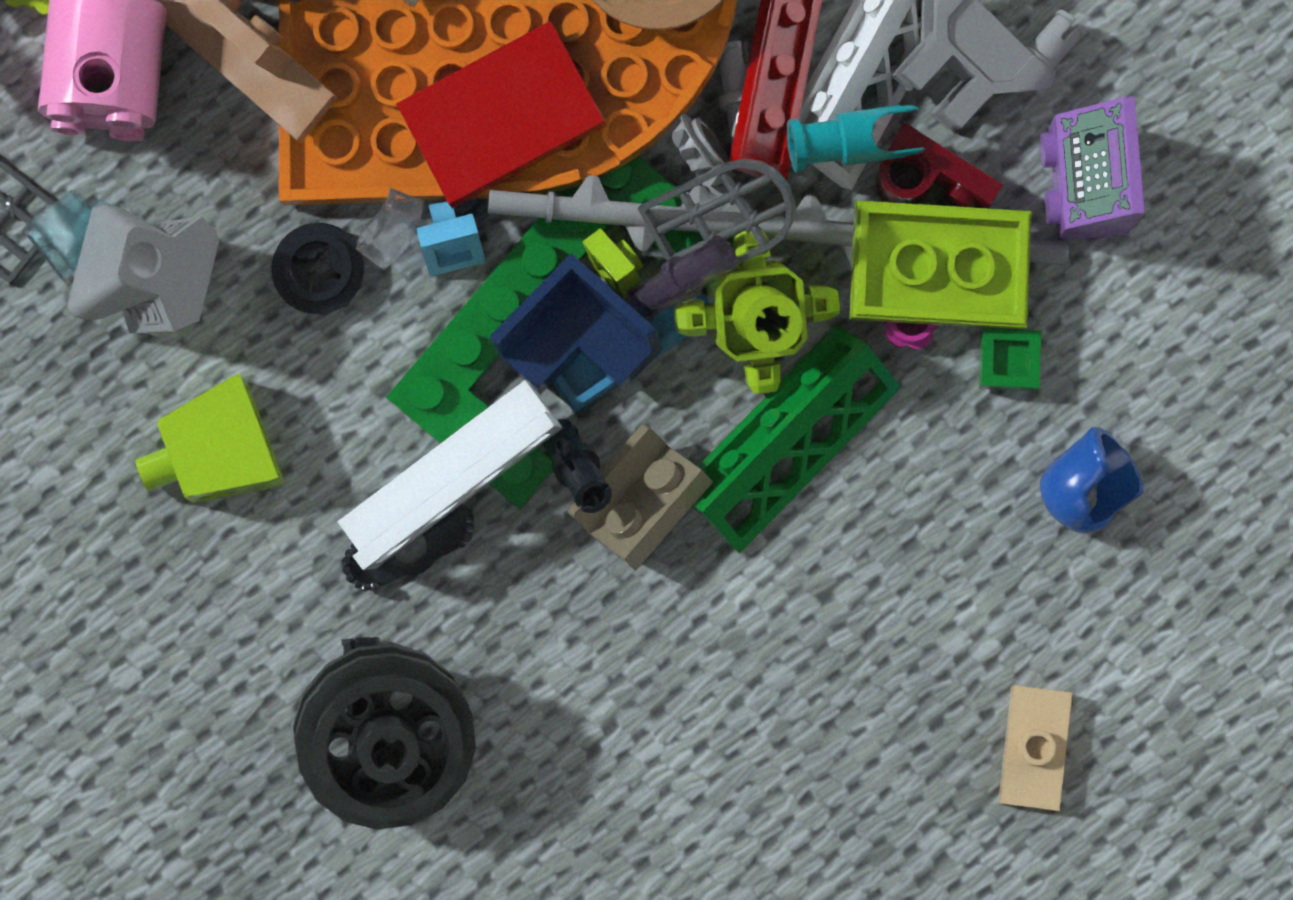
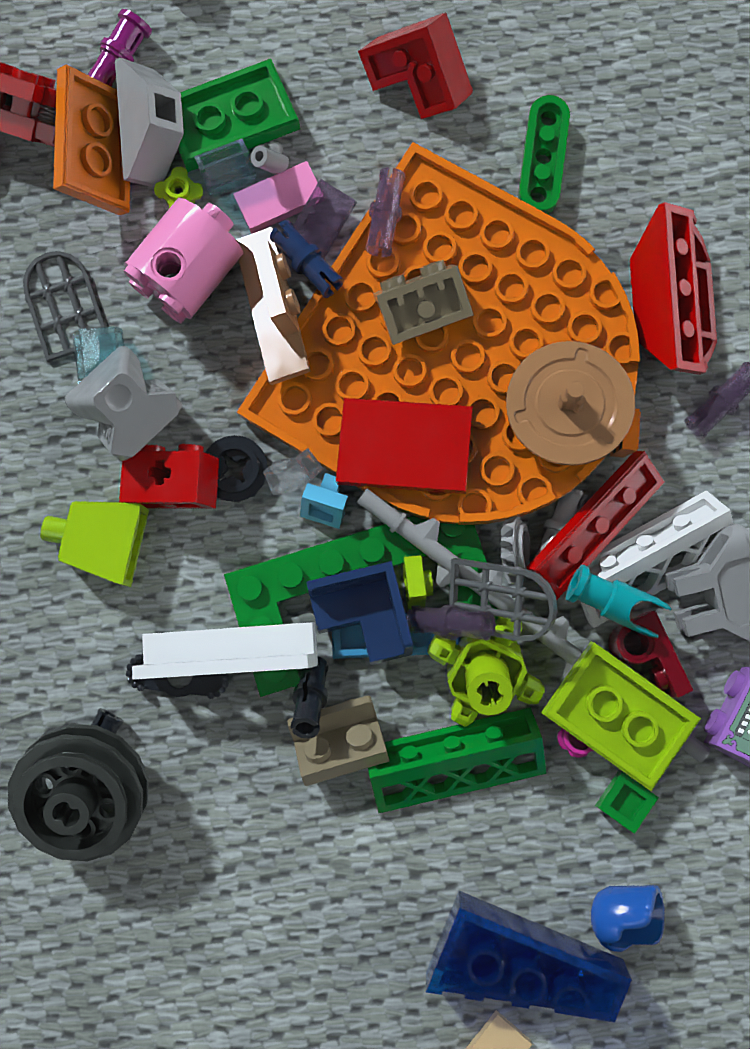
camera: 30 degrees right, 0 degrees up
(282, 322) = (191, 480): none -> red brick
(985, 610) = (523, 963): none -> clear blue wedge

